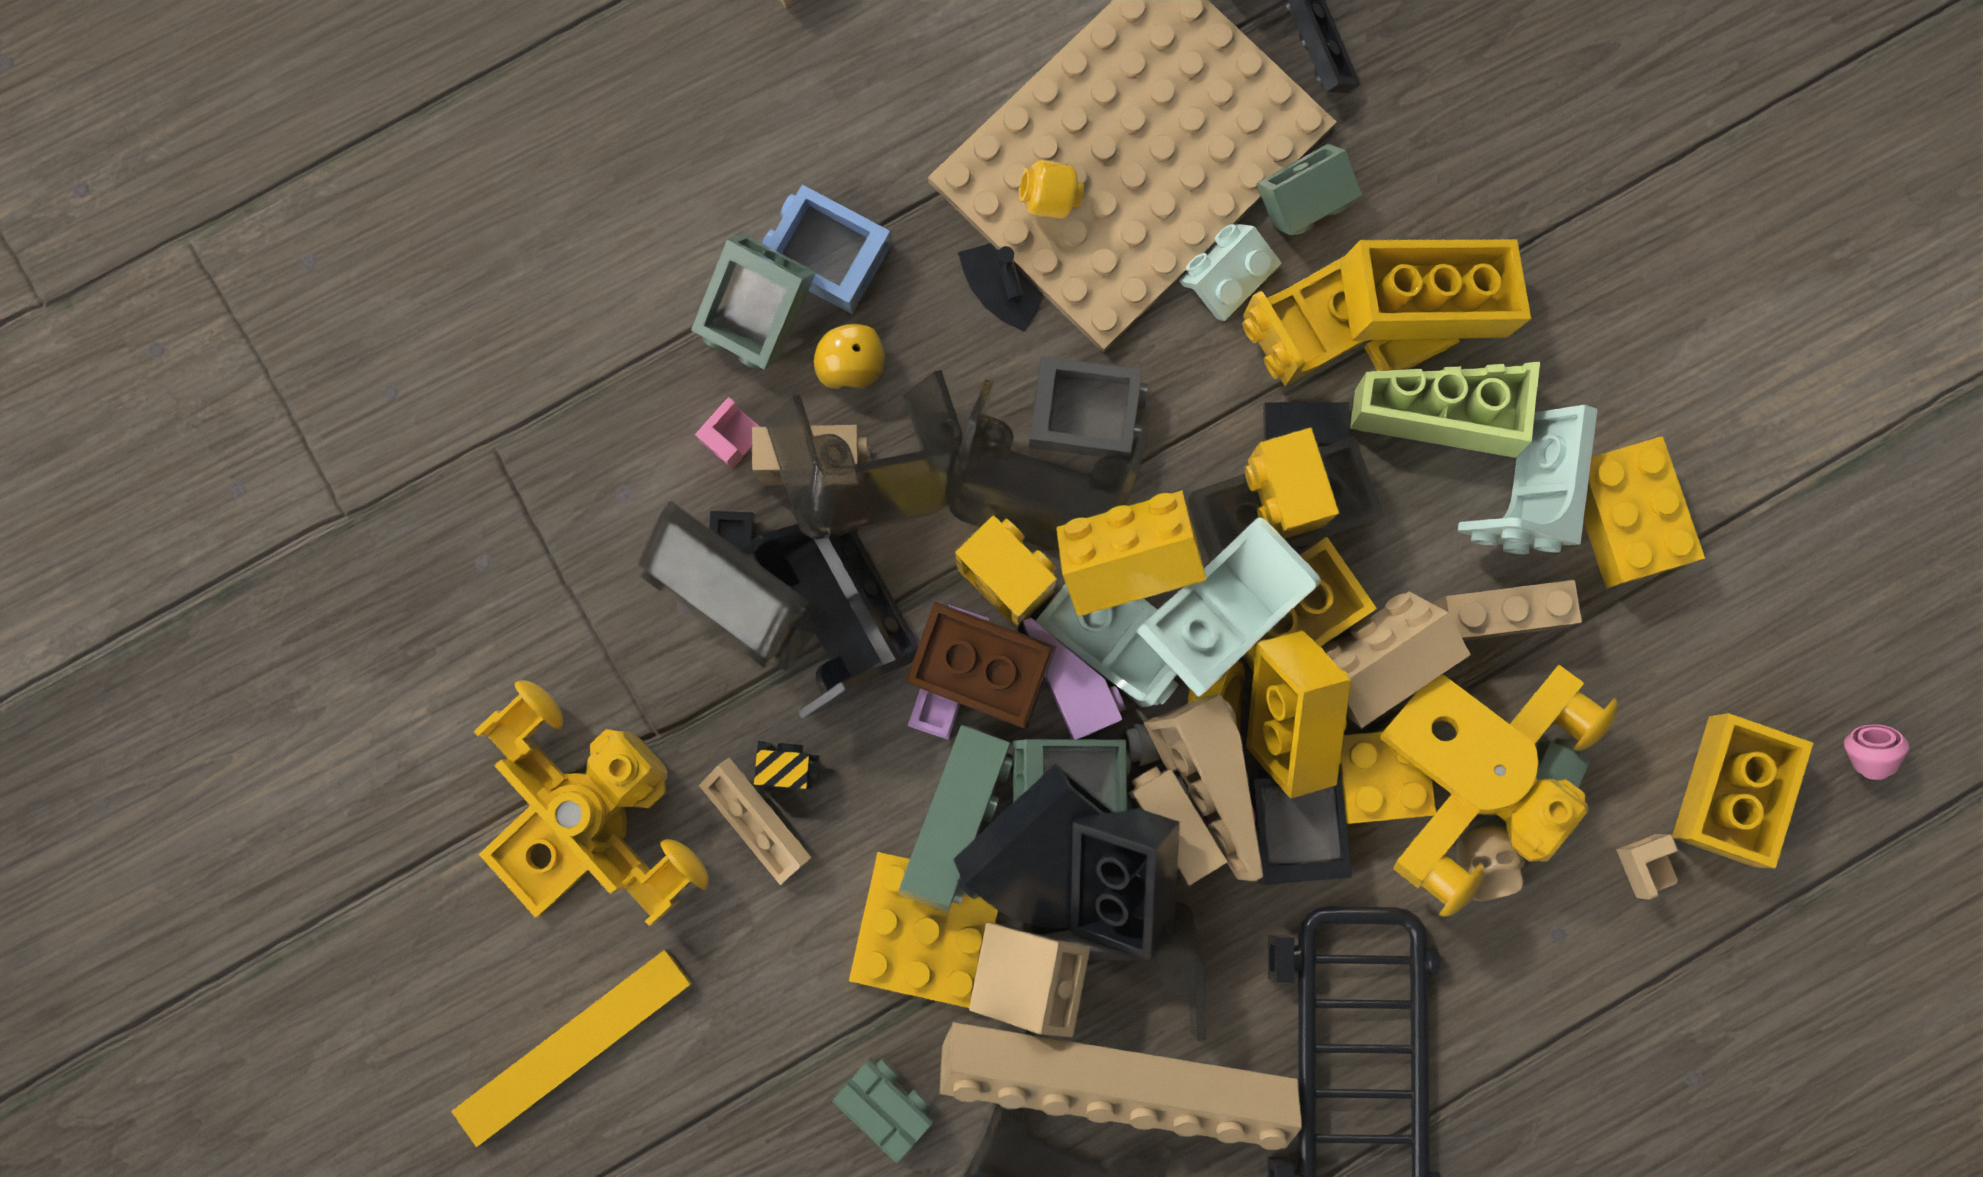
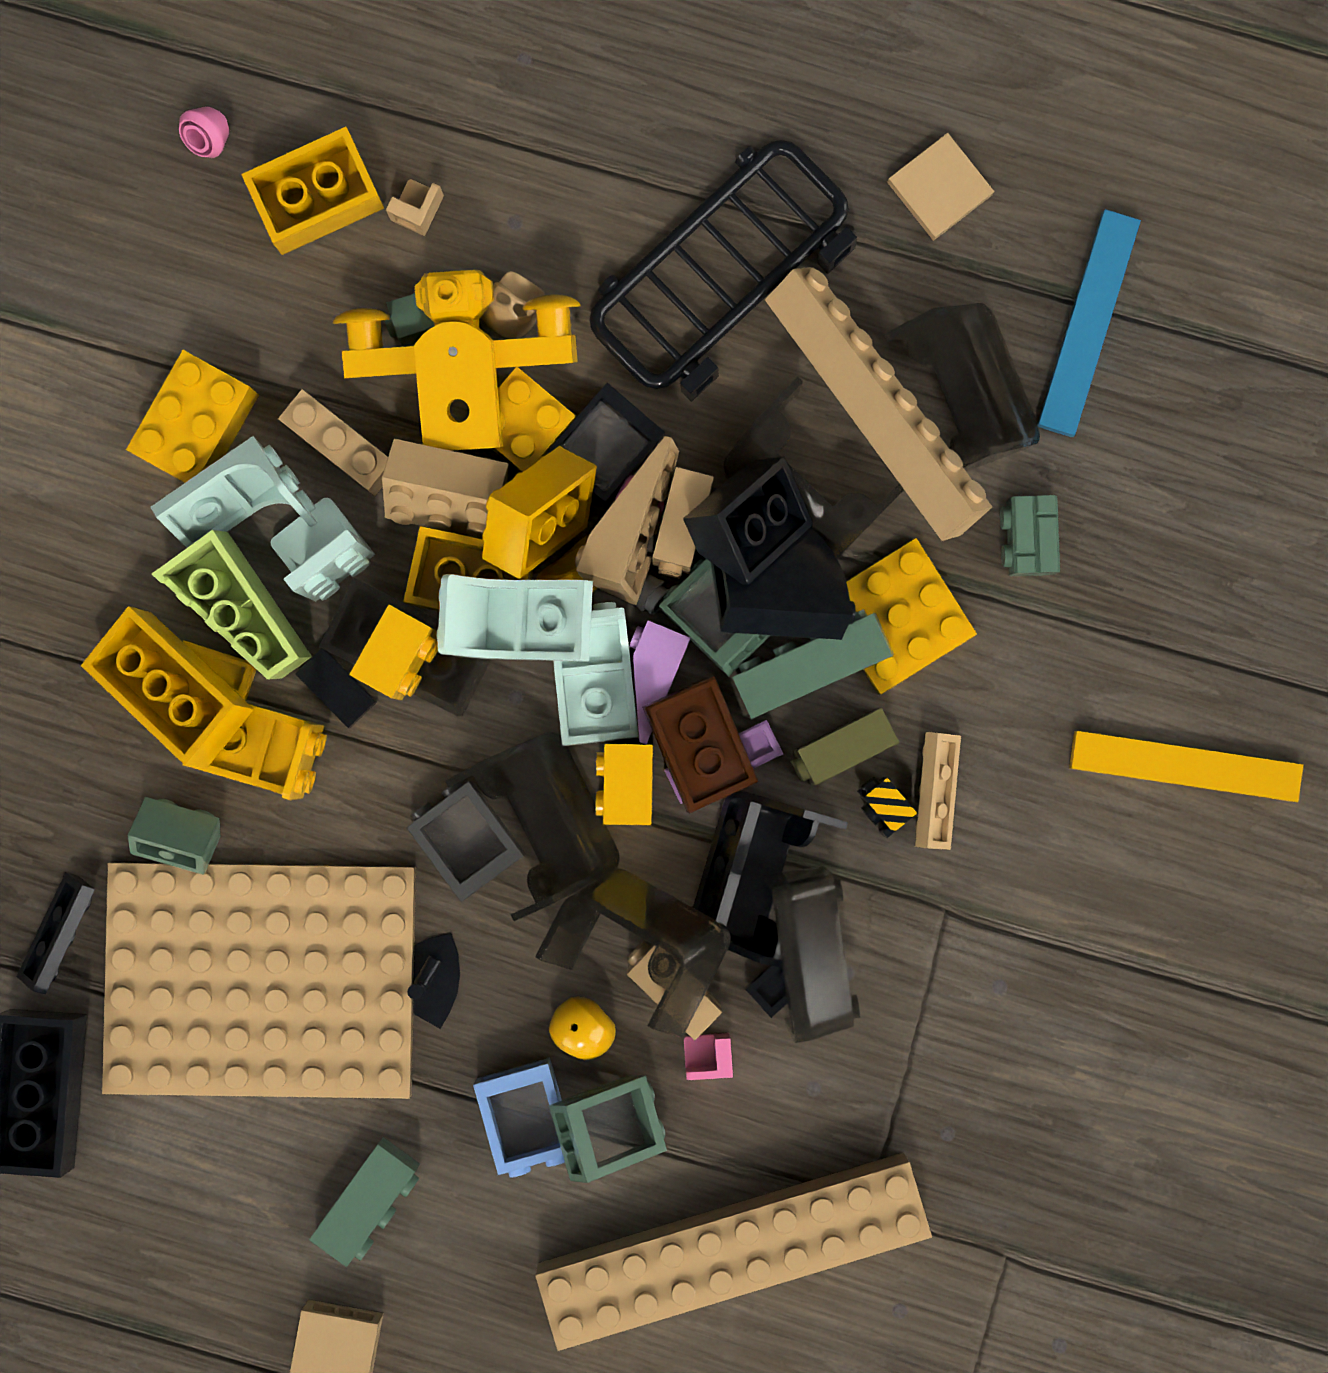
camera: 140 degrees left, 5 degrees up
(563, 308) = (732, 1251): none -> tan brick
(580, 814) = (1042, 905): yellow piece -> none
(864, 776) = (844, 747): none -> olive brick
(881, 70) = (366, 1203): none -> sand green brick
(1029, 980) = (868, 520): tan panel -> none
(1050, 189) = (342, 1005): yellow head -> none
(1129, 553) = (539, 715): yellow brick -> none
(1230, 269) = (279, 836): light aqua bracket -> none
(1428, 511) = (321, 553): none -> light aqua bracket

